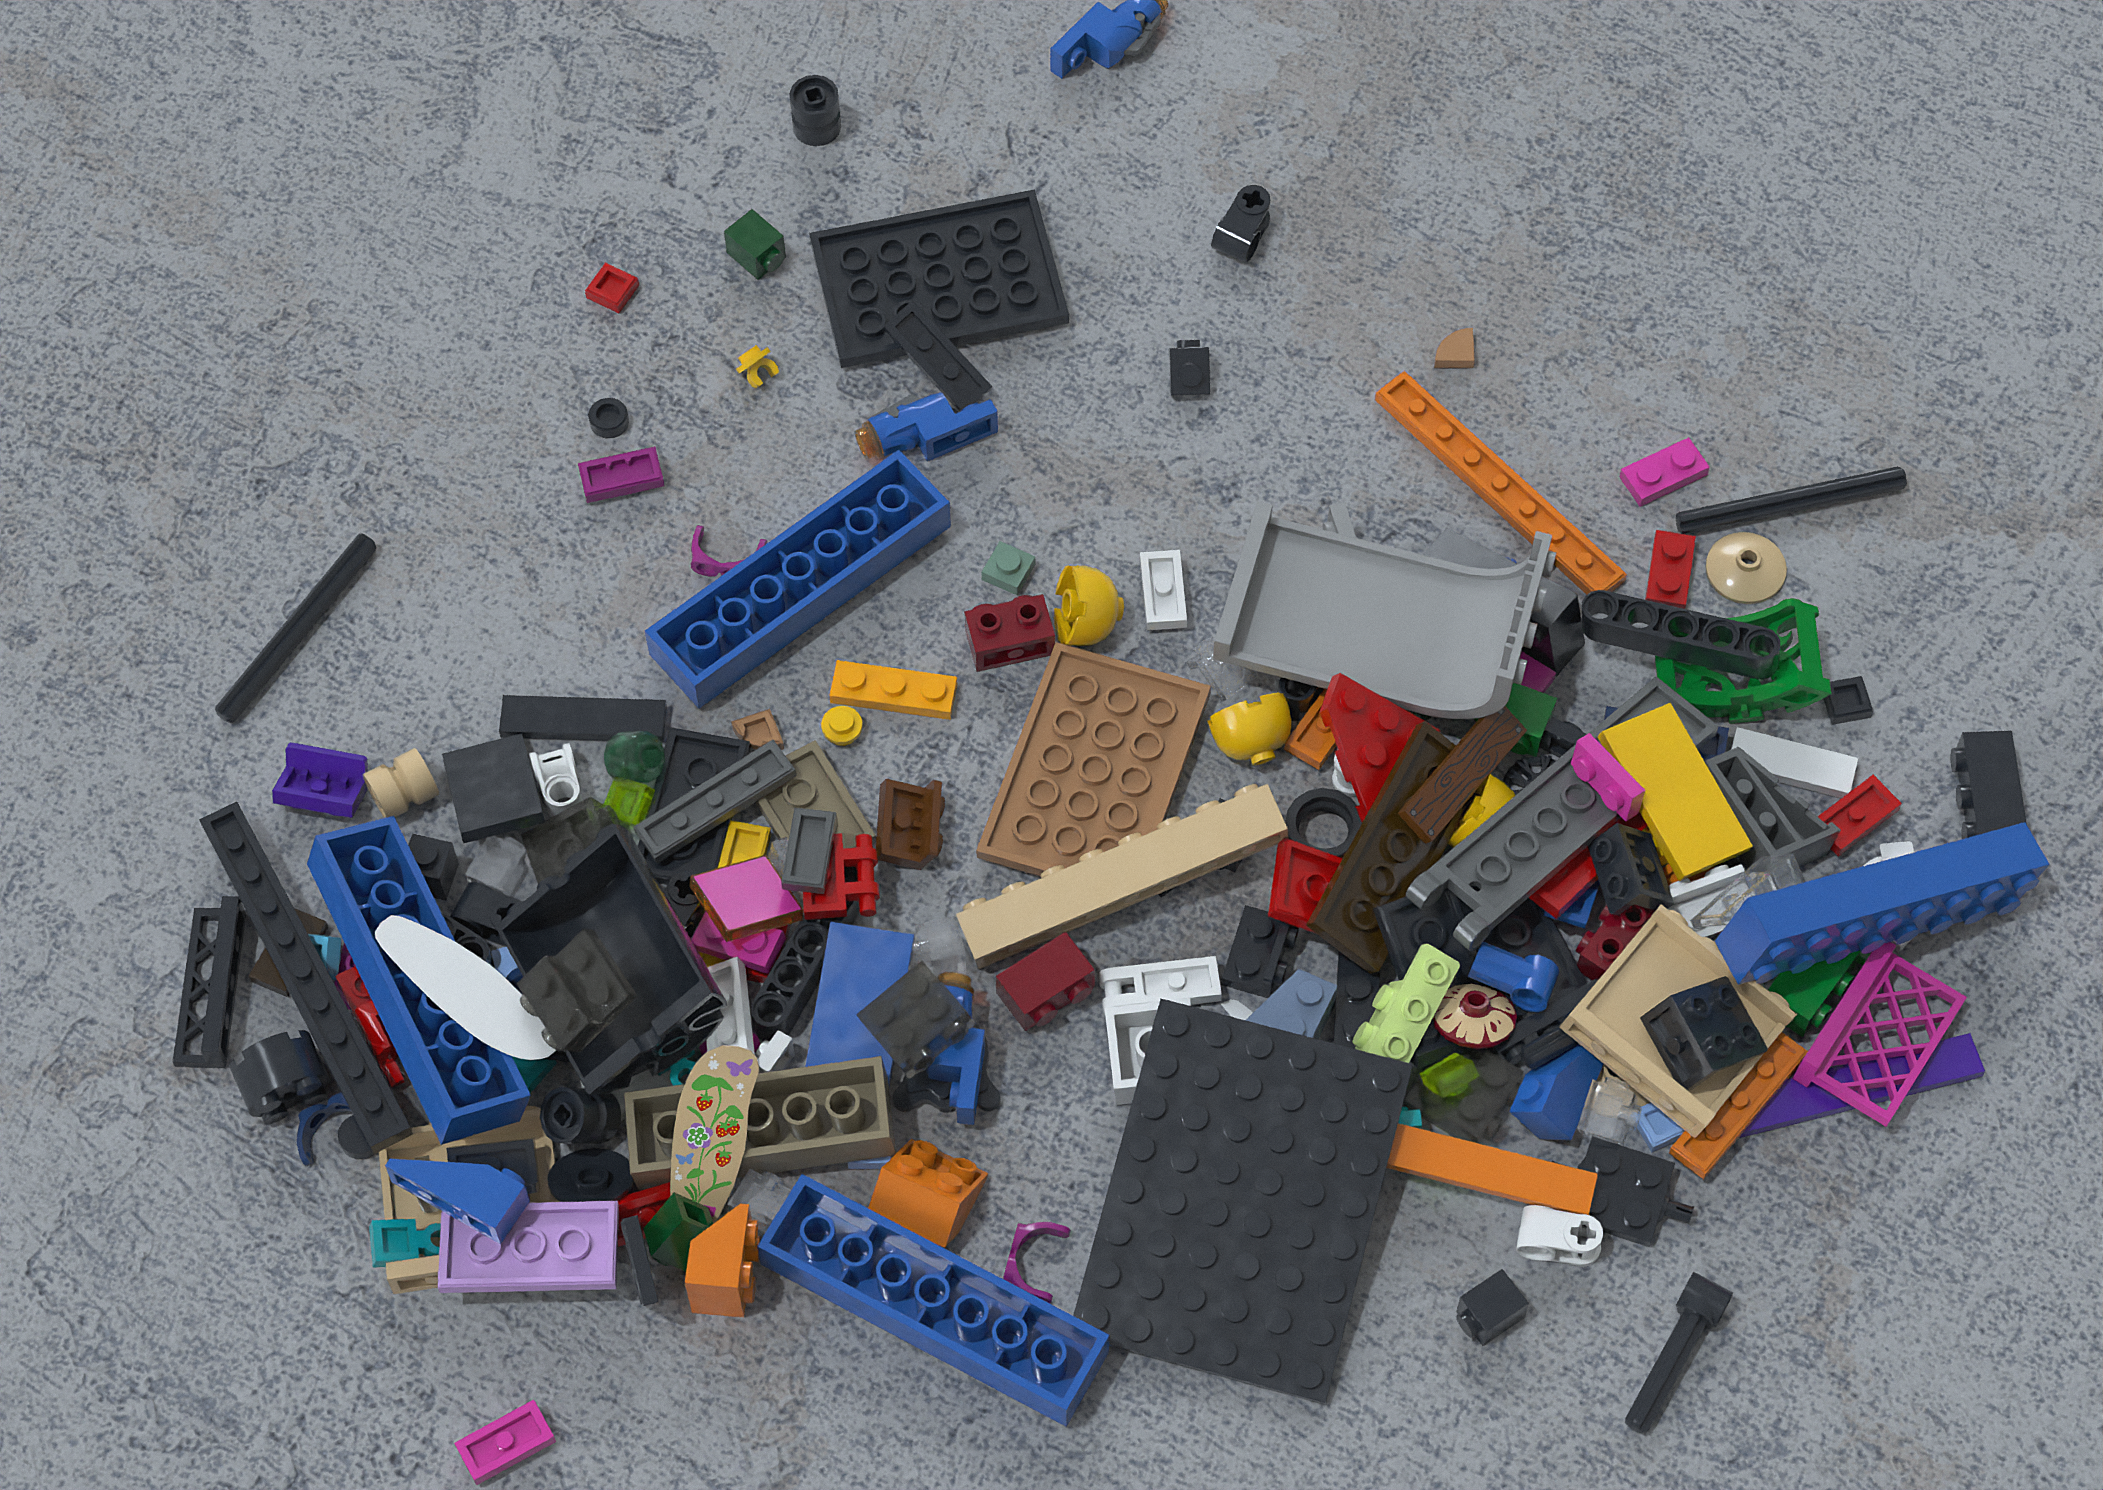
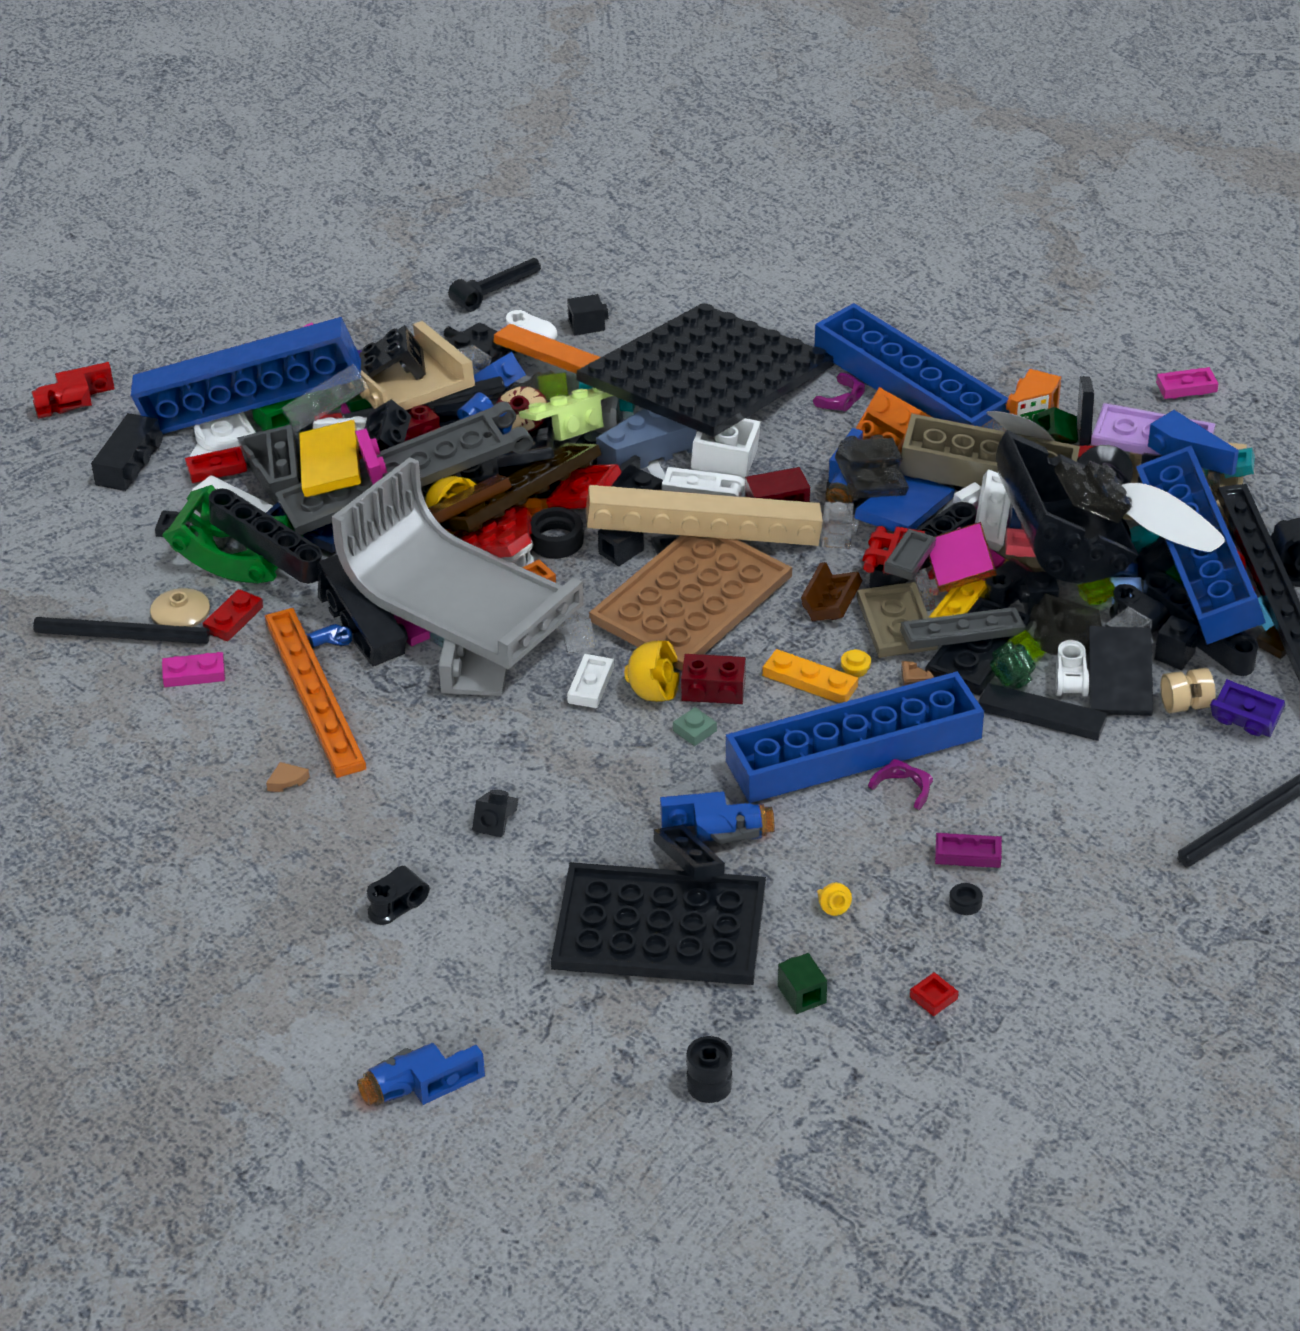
camera: 160 degrees left, 20 degrees down
(1252, 729) = (581, 568): yellow cylinder -> none

